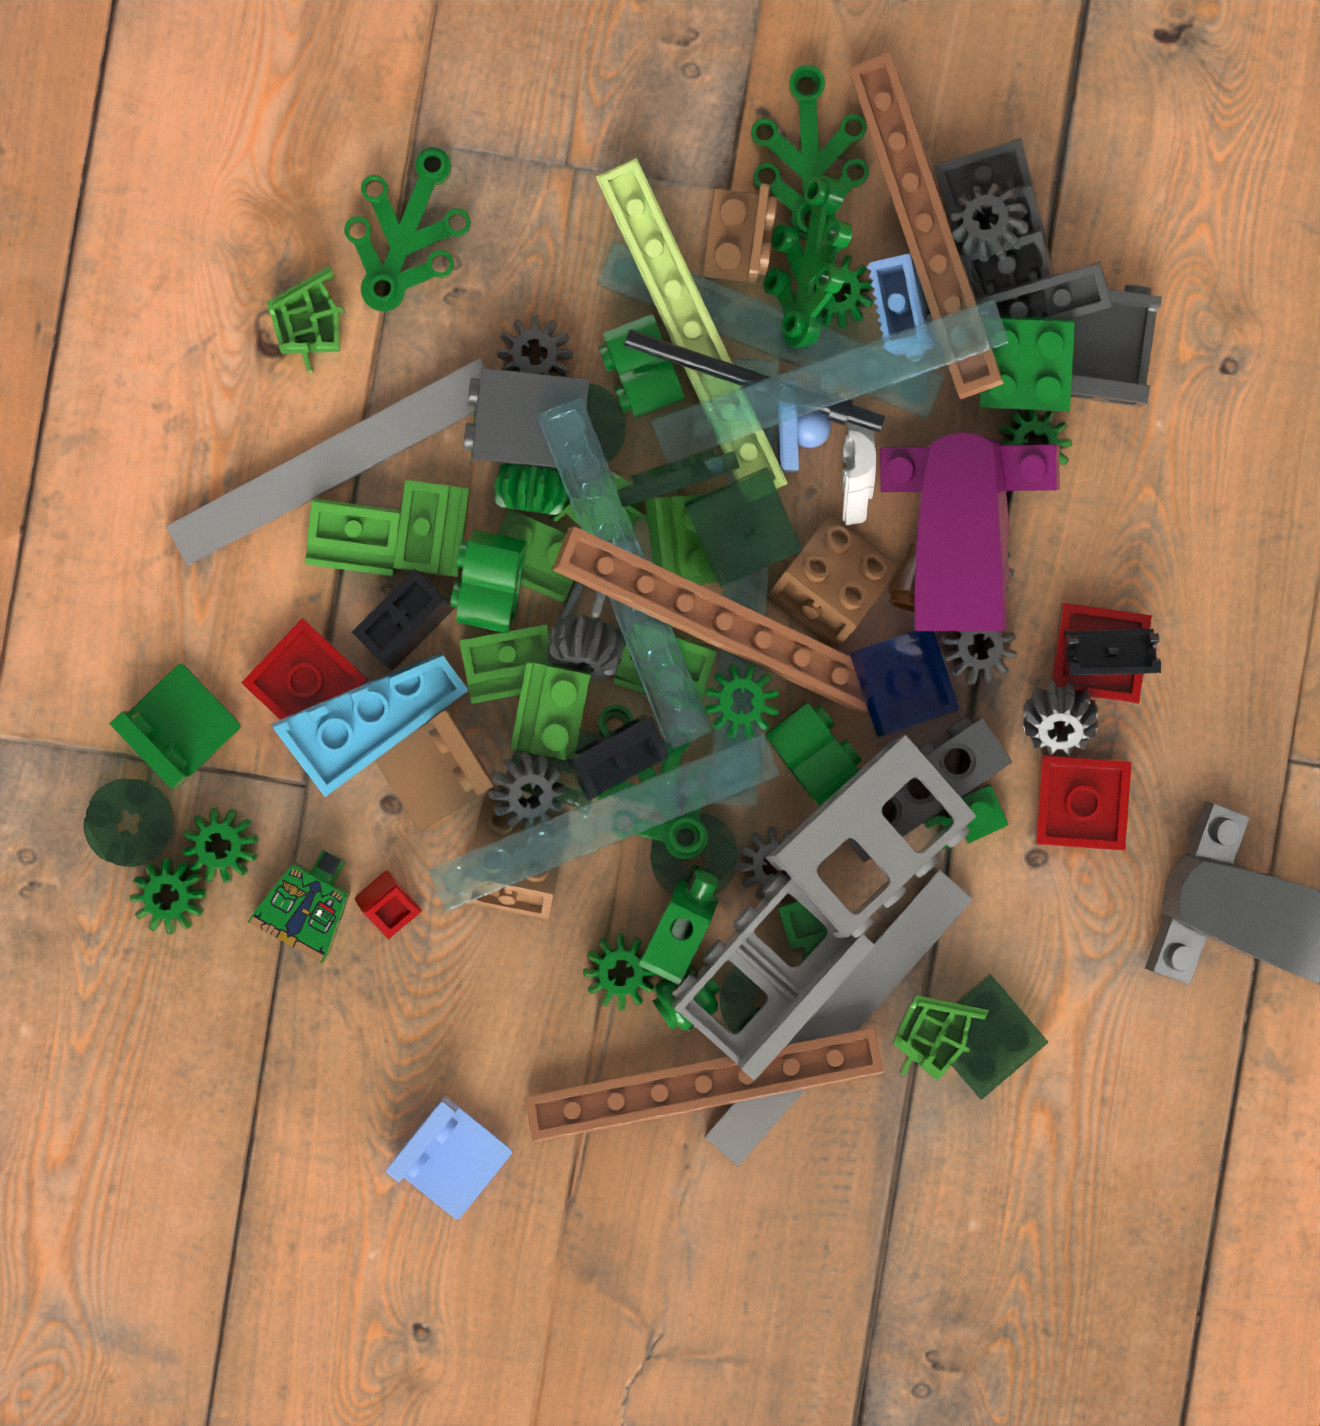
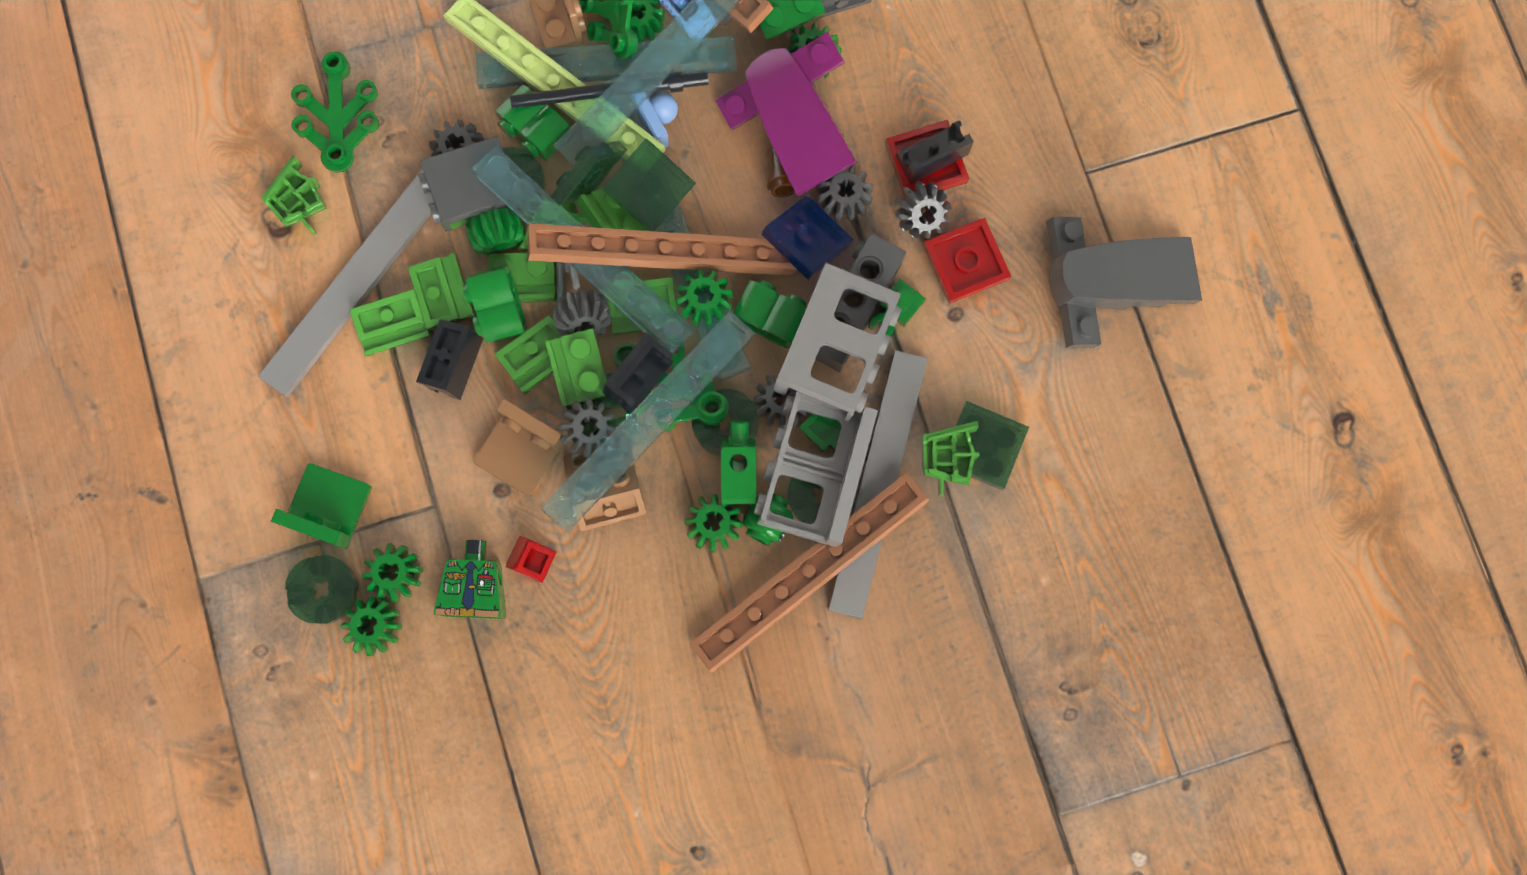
camera: 25 degrees left, 10 degrees down
(301, 673) = (400, 433): red plate -> none
(362, 724) = (450, 445): medium azure wing -> none
(450, 1158) = (657, 713): light blue bracket -> none
(833, 581) = (726, 199): medium nougat bracket -> none
(859, 475) = (708, 116): white piece -> none

